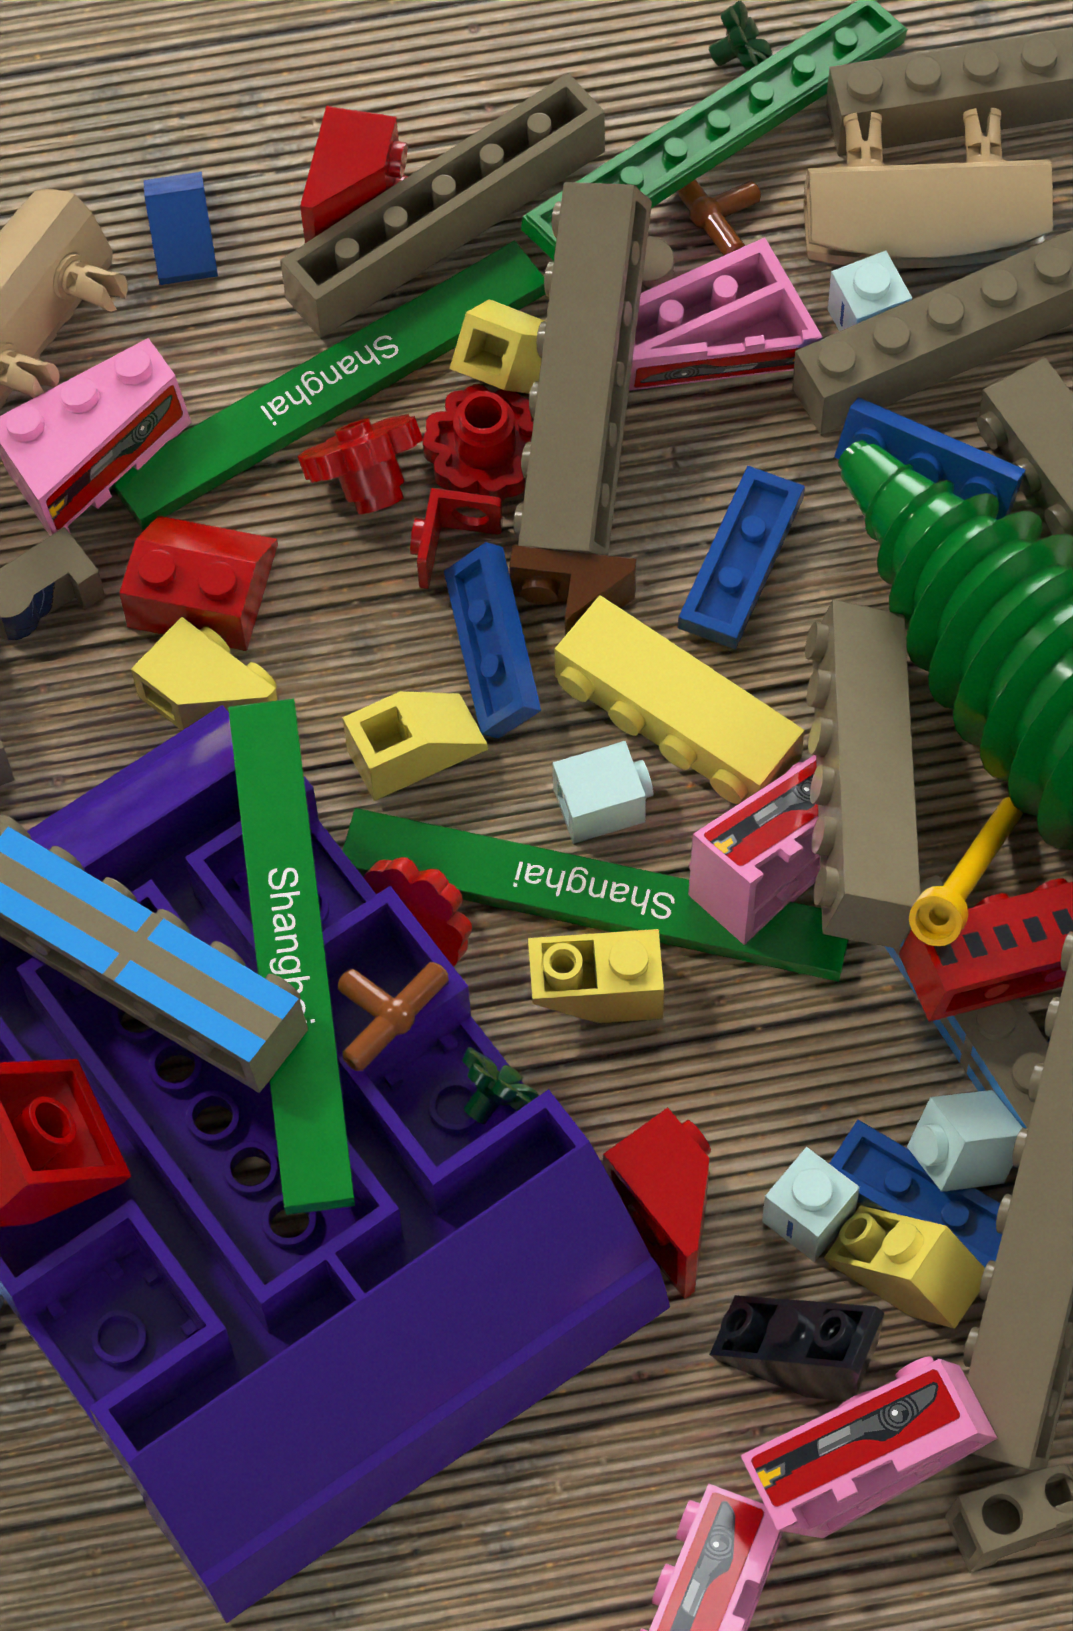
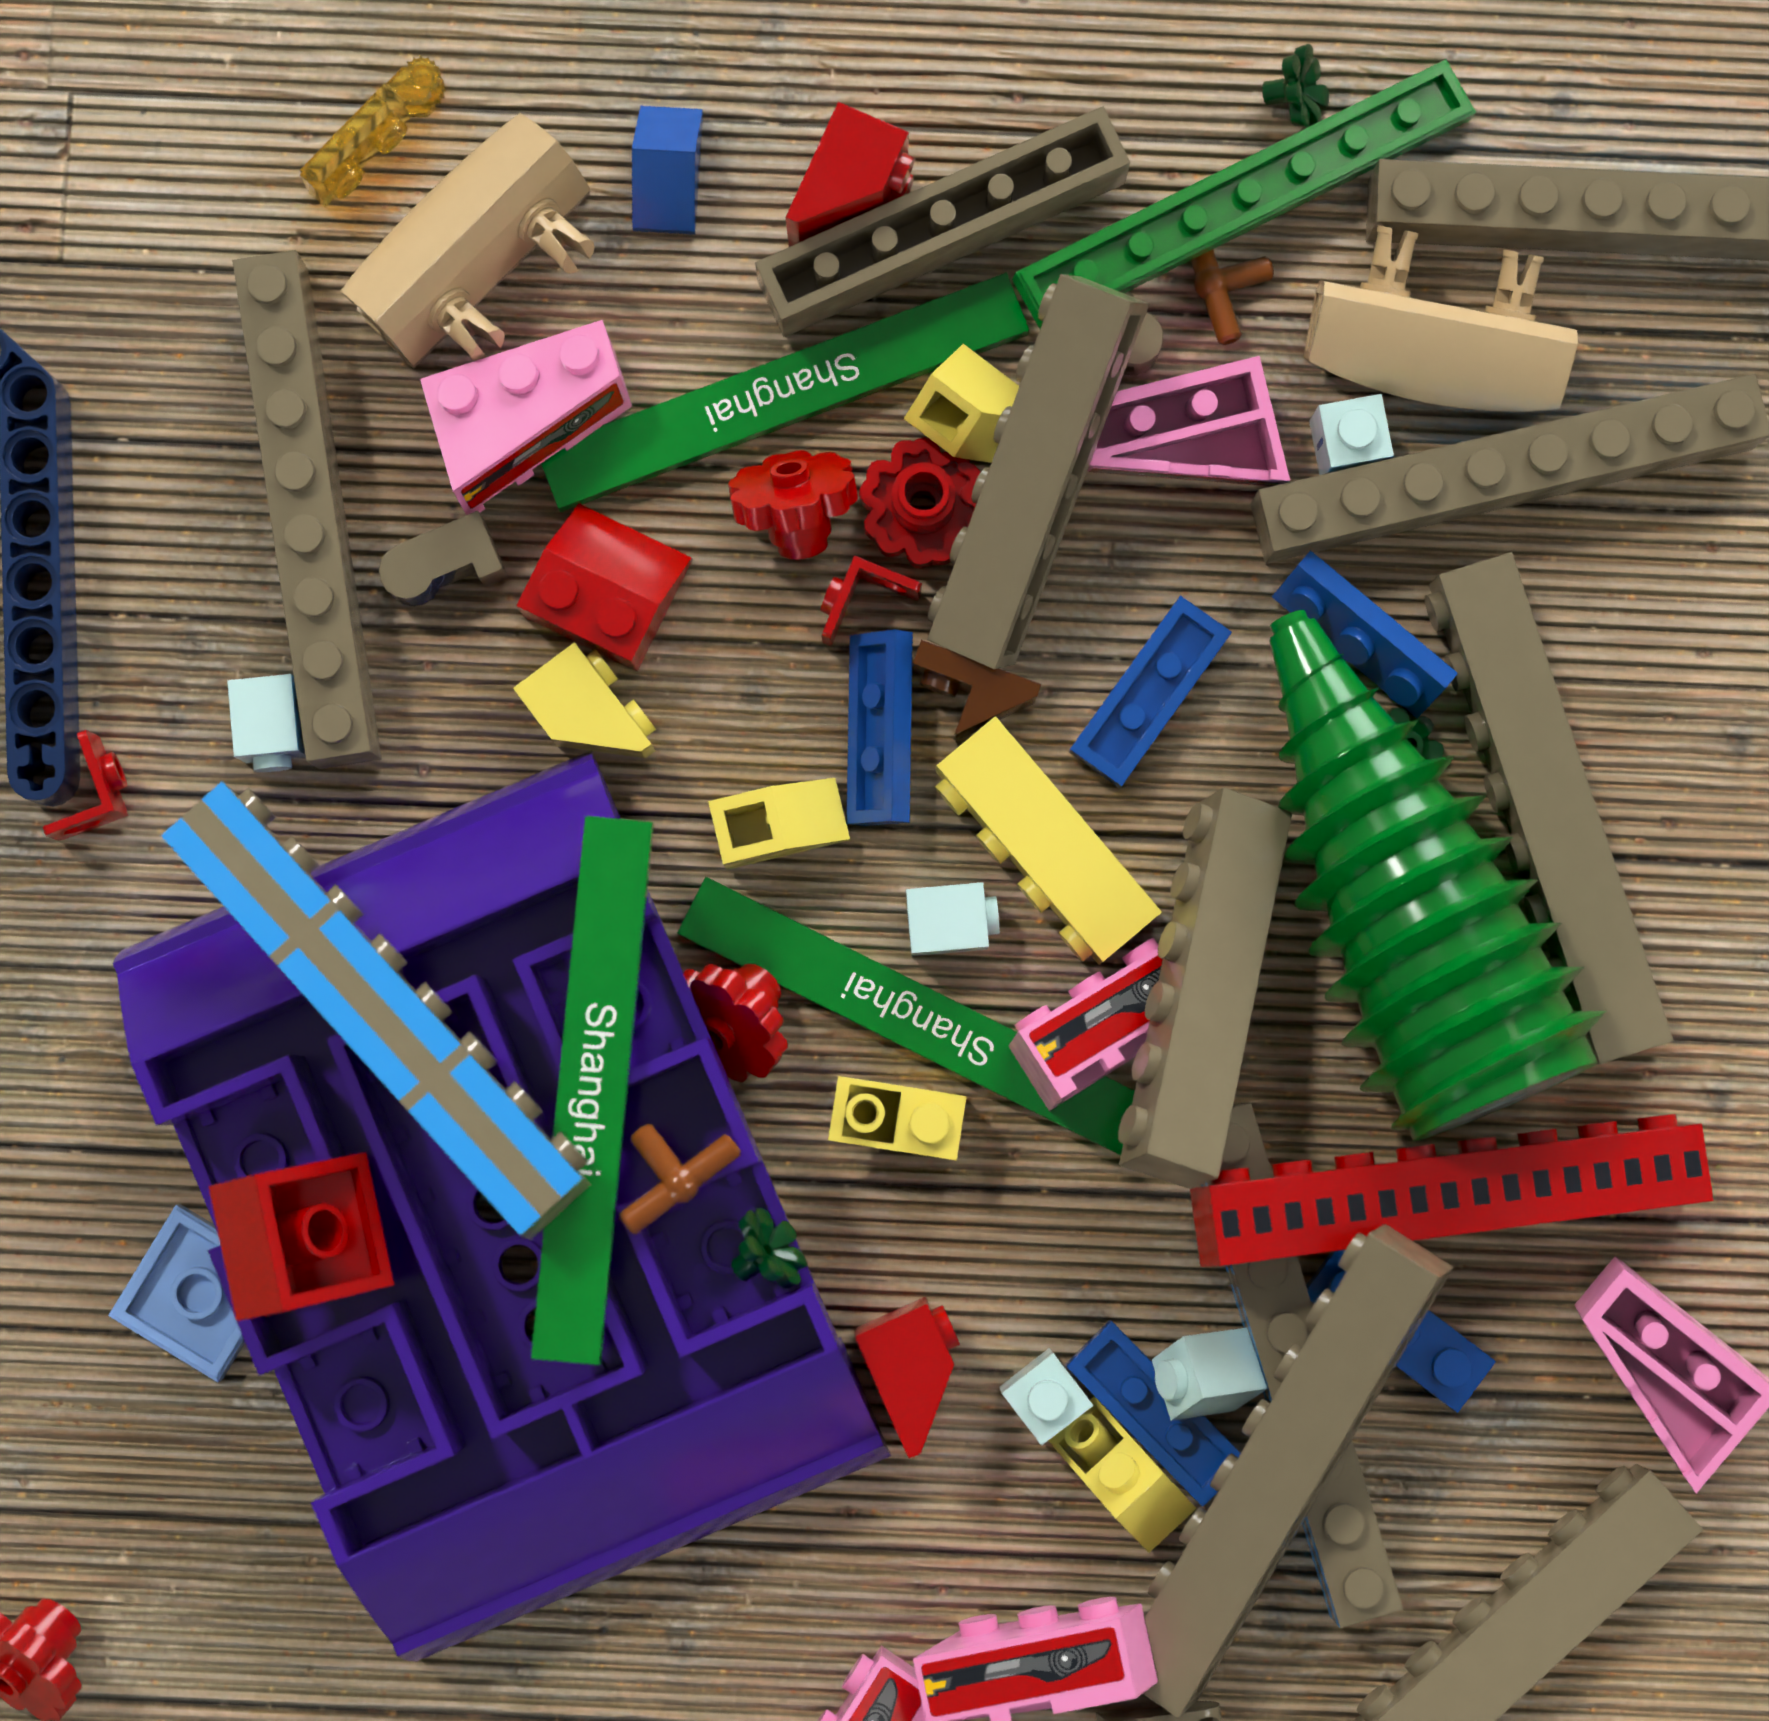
camera: 10 degrees right, 20 degrees up
(800, 1344) = (1000, 1535): black slope -> none
(942, 910) = (1236, 1189): yellow piece -> none

